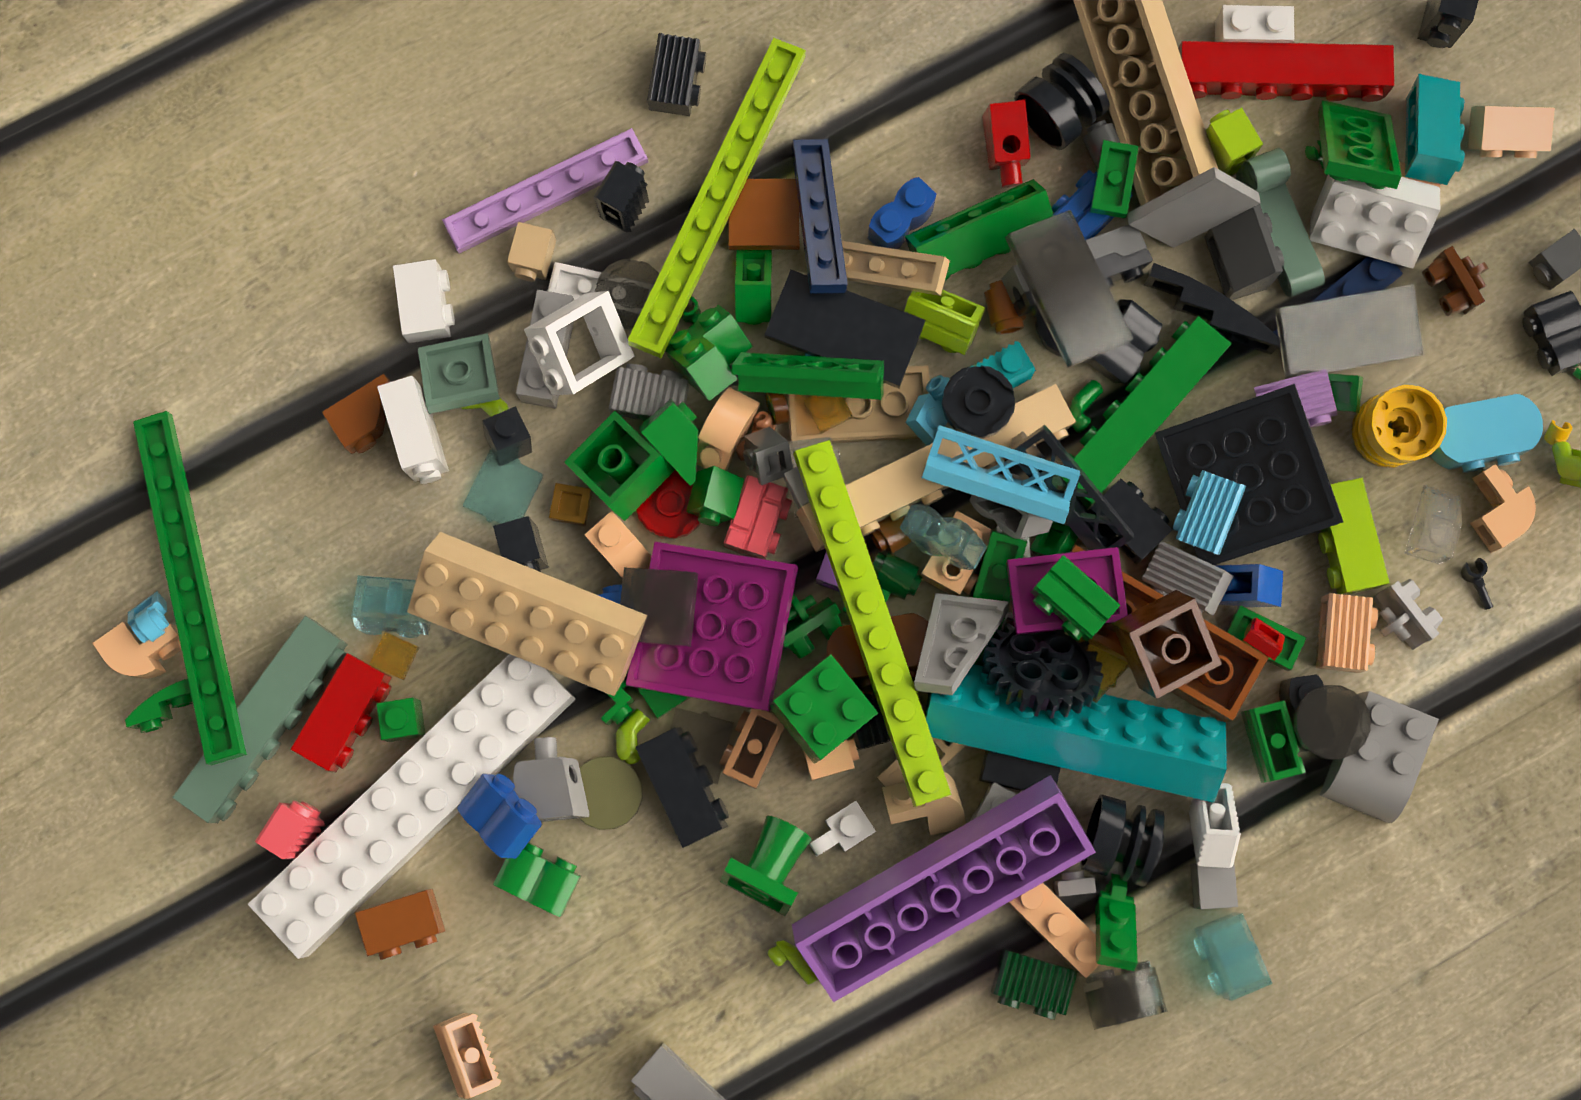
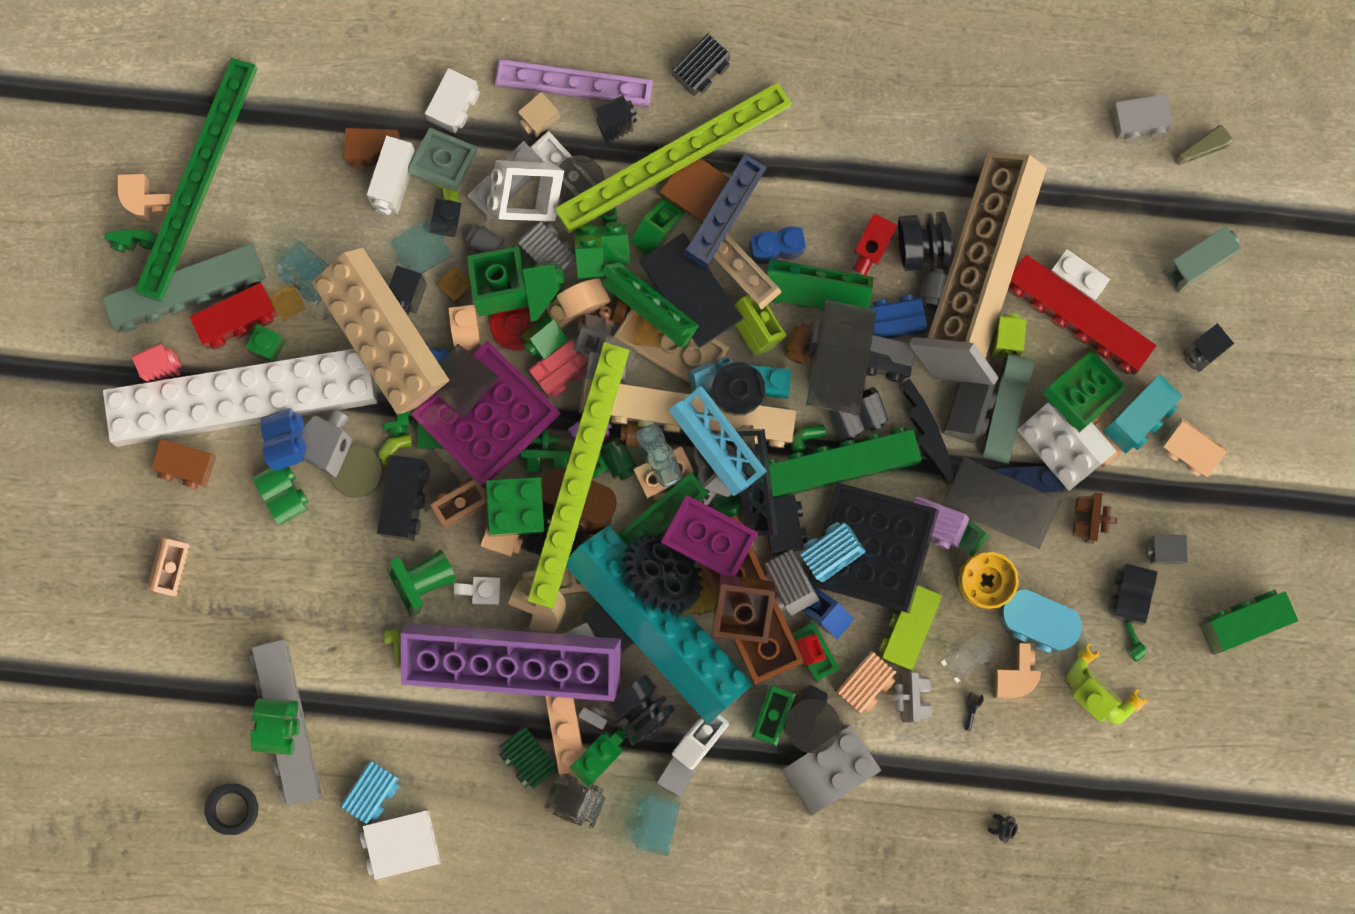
camera: 35 degrees right, 0 degrees up
(148, 618) = (160, 181): medium azure plate -> none
(569, 433) = (483, 240): none -> dark grey brick
(954, 640) = (622, 520): light grey wing -> none
(1074, 600) = (706, 543): green brick -> none
(1114, 179) = (919, 310): green plate -> none

